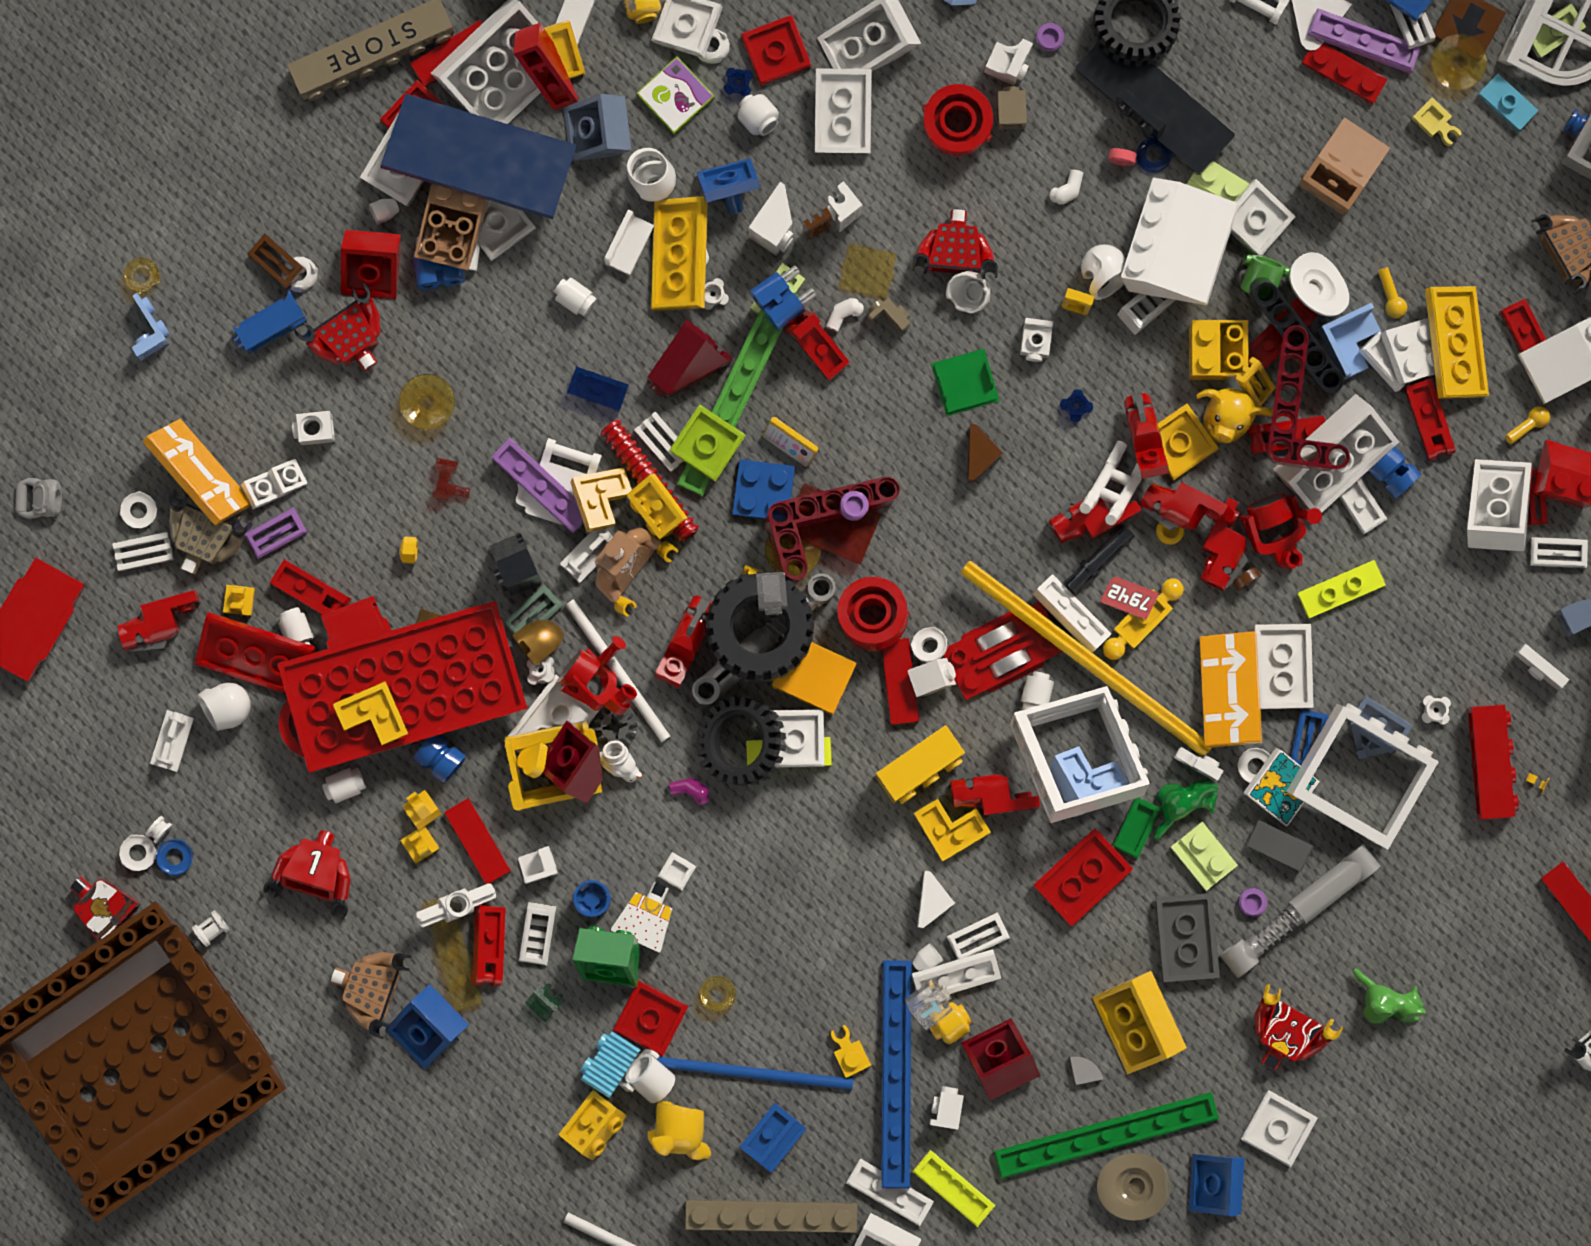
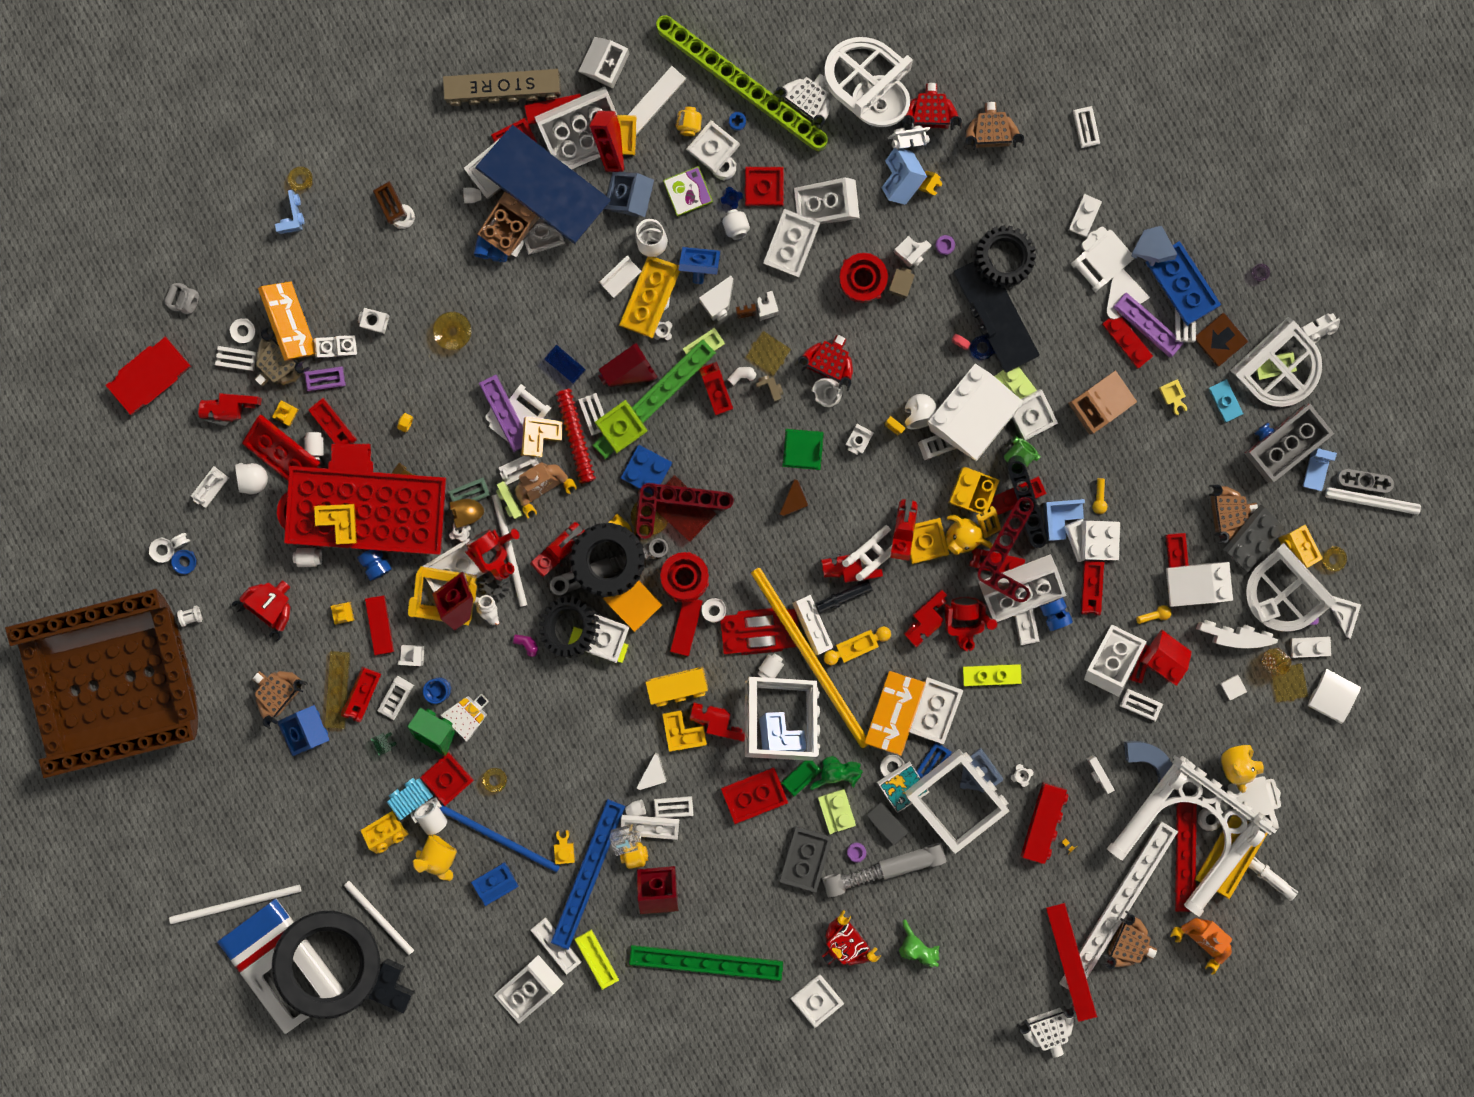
camera: 30 degrees right, 5 degrees up
(102, 906) = (126, 576): torso -> none
(268, 324) = (369, 242): blue window -> none
(347, 333) = (417, 267): red torso -> none
(370, 260) = (449, 227): red slope -> none
(421, 809) = (351, 591): yellow tile -> none
(443, 486) = (442, 389): clear red piece -> none
(468, 899) = (359, 661): white axle -> none
(515, 566) = (467, 458): black wedge -> none
(533, 759) = (431, 588): yellow tile -> none
(574, 296) = (572, 298): white brick -> none
(582, 594) = (512, 507): none -> yellowish green plate
(656, 507) = (572, 455): yellow bracket -> none
(677, 871) = (498, 692): white tile -> none
(771, 592) = (620, 543): clear brick -> none
(771, 1215) = (474, 933): dark tan brick -> none
(778, 300) = (701, 353): blue piece -> none
(790, 442) = (675, 445): slope -> none
(854, 505) = (698, 504): medium lavender tile -> none
(932, 677) = (707, 632): white brick -> none
(947, 1108) = (612, 908): white brick -> none
(1068, 191) = (917, 351): white arm -> none
(1084, 405) = (873, 493): clear blue plate -> none
(1084, 1070) = (708, 917): light grey tile -> none
(1129, 597) = (854, 629): sticker -> none
(1133, 1186) = (710, 1003): dark tan hat -> none
(1139, 1022) = (754, 901): yellow slope -> none
(1169, 537) = (897, 595): yellow tile -> none
(1183, 507) = (909, 584): red plate -> none
(1205, 766) = (860, 755): white plate -> none
(1216, 1184) = (763, 1022): blue bracket -> none
(1246, 579) = (933, 645): reddish brown tile -> none
(1319, 284) = (1055, 474): white hat -> none
(1456, 342) = (1129, 544): yellow tile -> none
(1474, 61) = (1211, 370): clear yellow dish -> none

